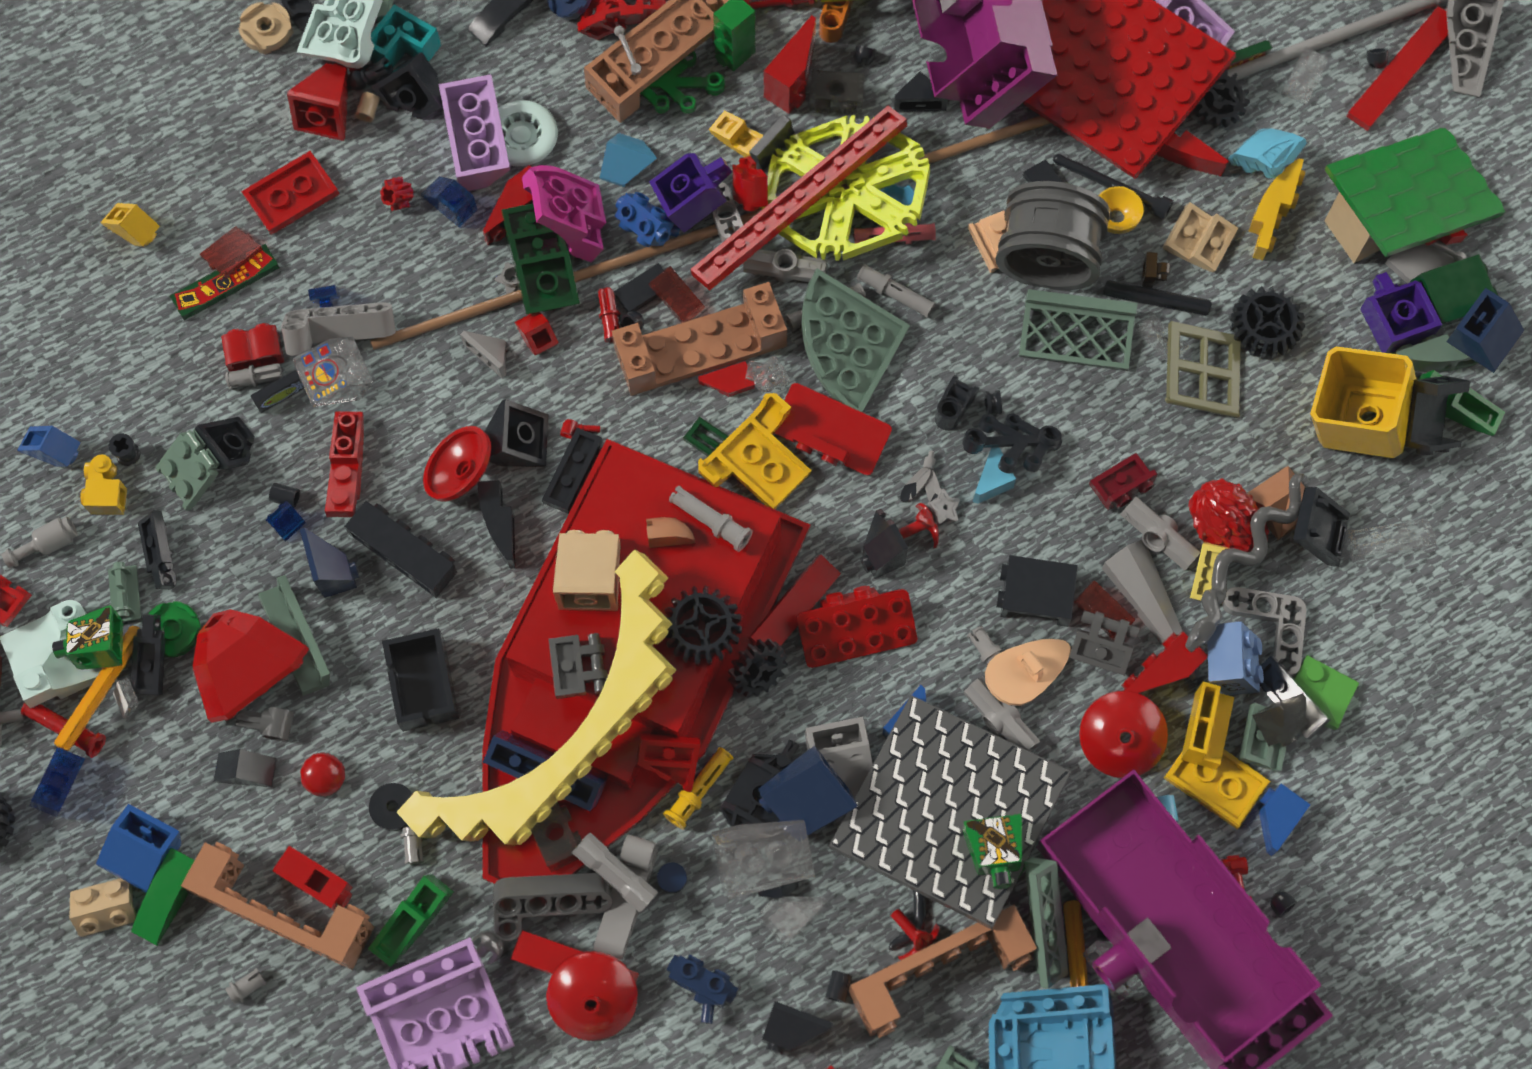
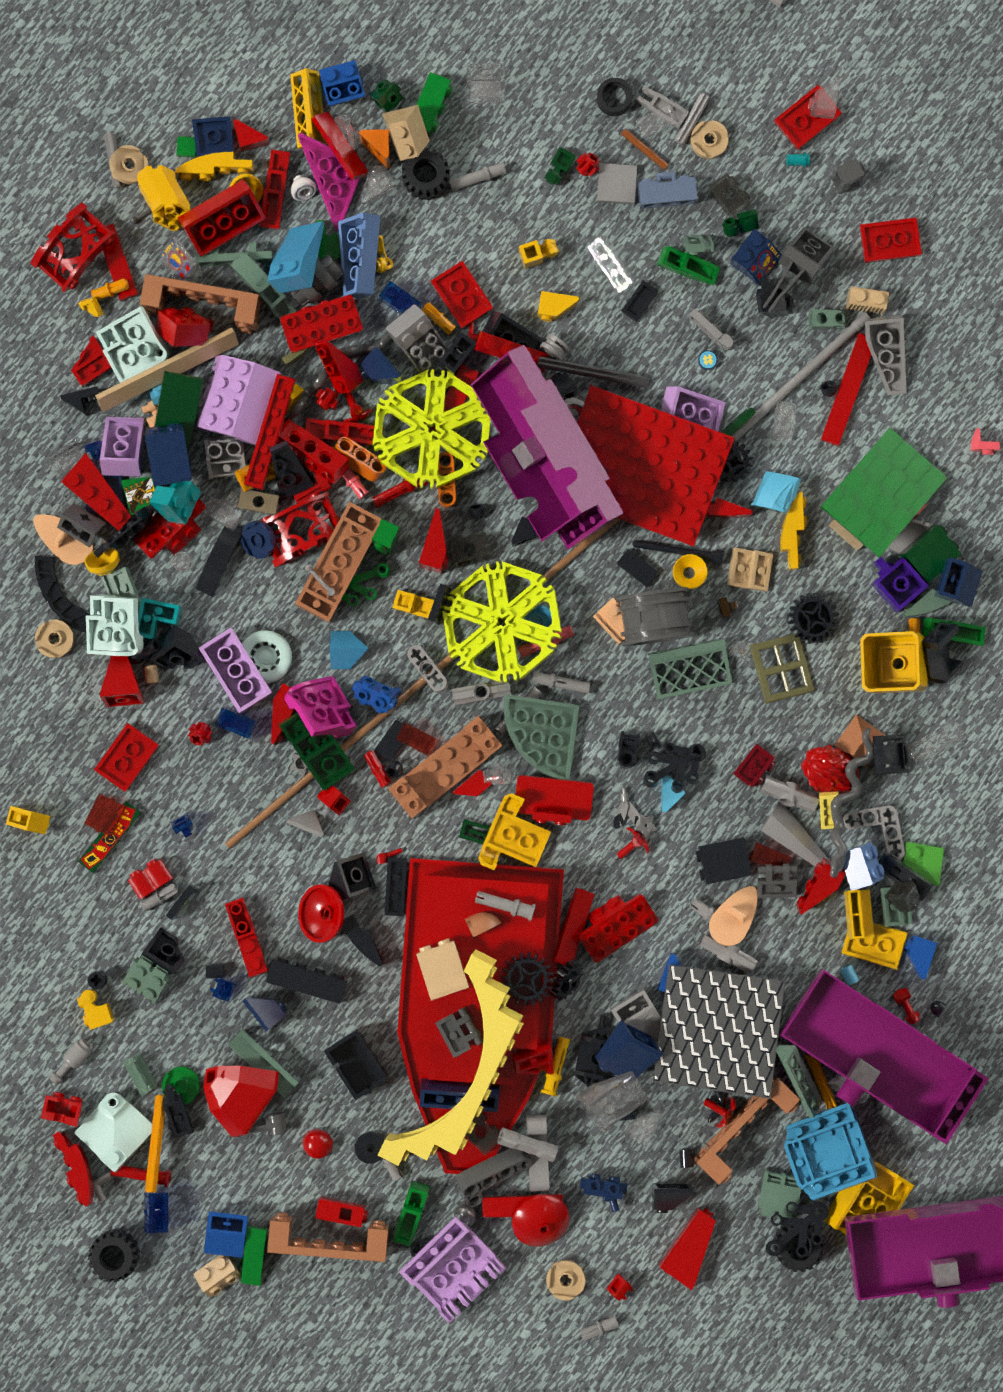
camera: 25 degrees left, 15 degrees up
(50, 445) = (46, 995): blue slope -> none
(93, 640) = (139, 1116): green torso -> none
(125, 697) = (173, 1142): clear tile -> none
(157, 550) = (149, 1039): black hinge -> none
(245, 768) = (267, 1158): black slope -> none
(245, 986) = (326, 1291): light grey pin -> none
(317, 325) = (199, 843): light grey beam -> none
(333, 372) = (213, 879): clear slope -> none
(672, 878) = (560, 1128): dark blue tile -> none
(690, 189) = (399, 664): dark purple hinge -> none
(749, 184) = (437, 647): red cylinder -> none
(798, 198) = (475, 644): plate -> none
(883, 547) = (615, 868): black slope -> none
(995, 847) = (756, 1050): torso -> none
(1121, 713) = (801, 929): red dish -> none
(1157, 297) = (735, 624): black axle -> none

